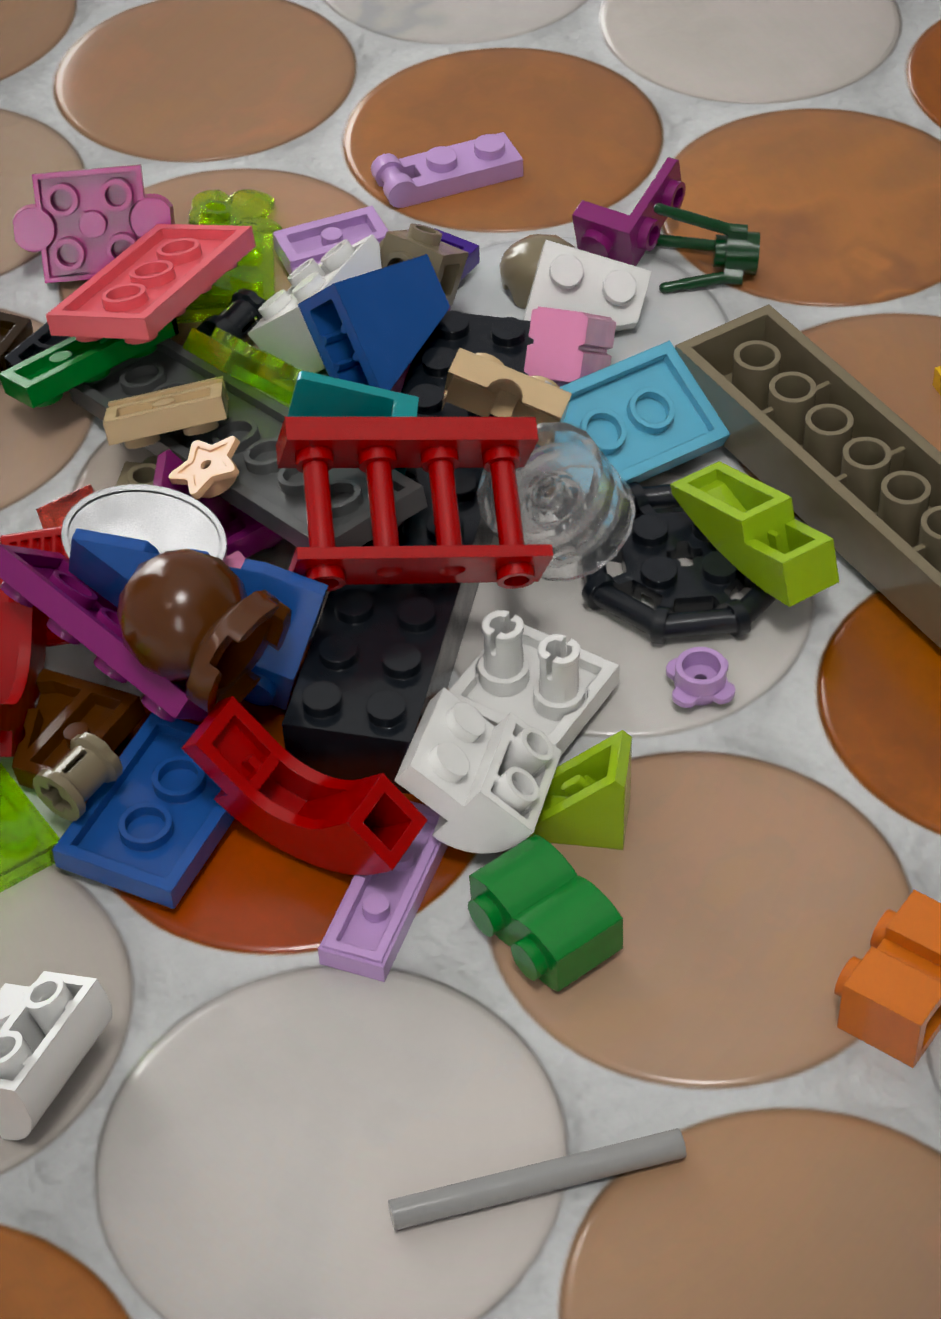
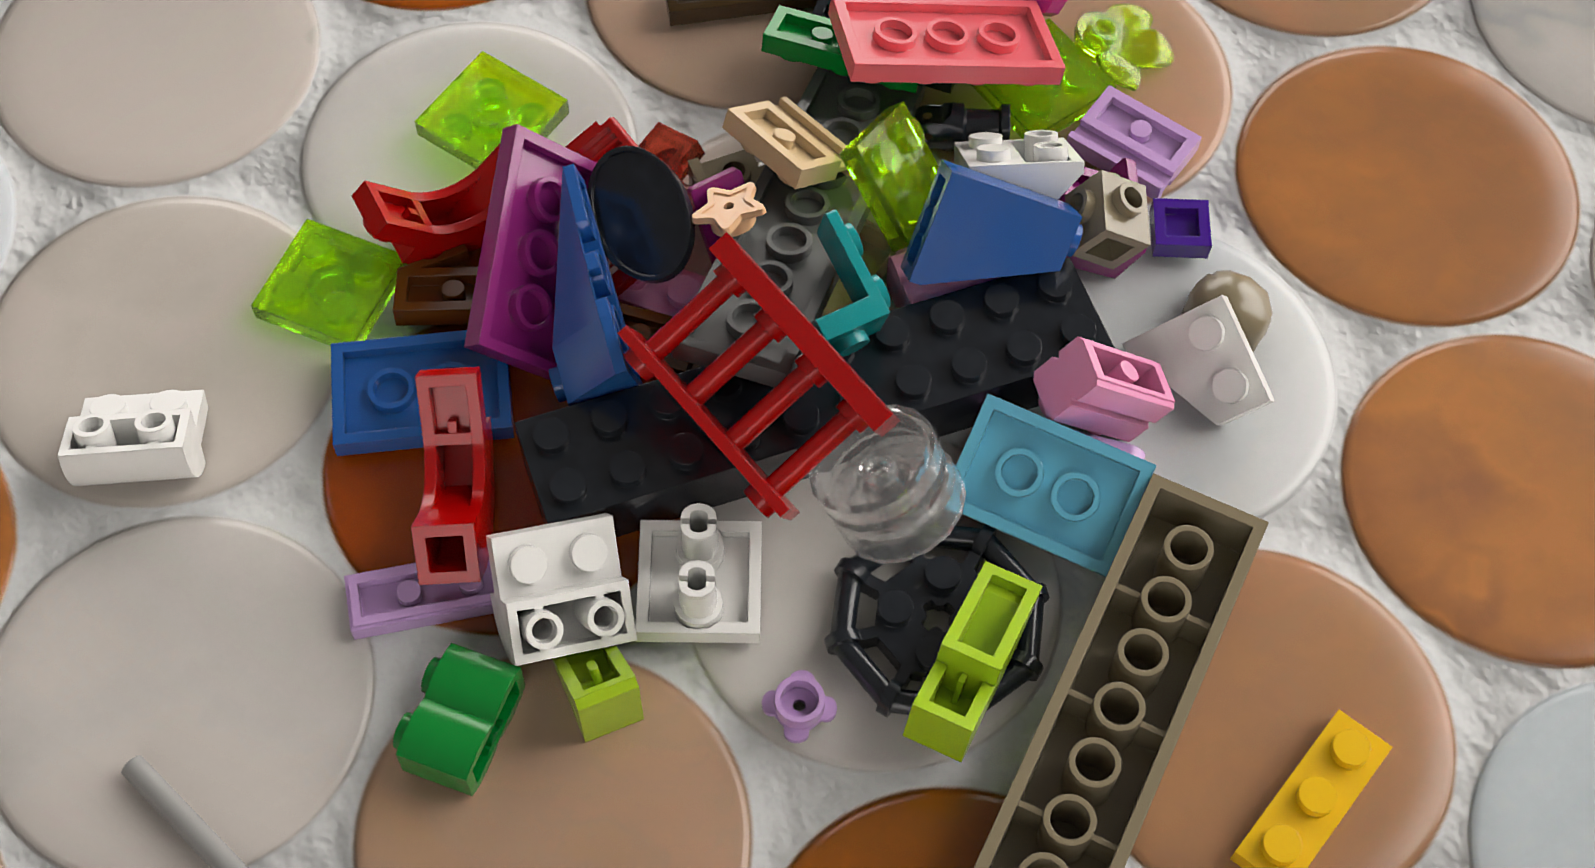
camera: 55 degrees right, 15 degrees up
(77, 776) = (389, 317): dark tan bush -> none
(195, 623) = (517, 302): reddish brown tile -> none
(447, 170) = (1313, 165): lavender plate -> none
(488, 387) = (969, 401): tan piece -> none
(624, 235) = (1346, 359): magenta bracket -> none
(734, 251) = (1371, 451): dark green plant -> none

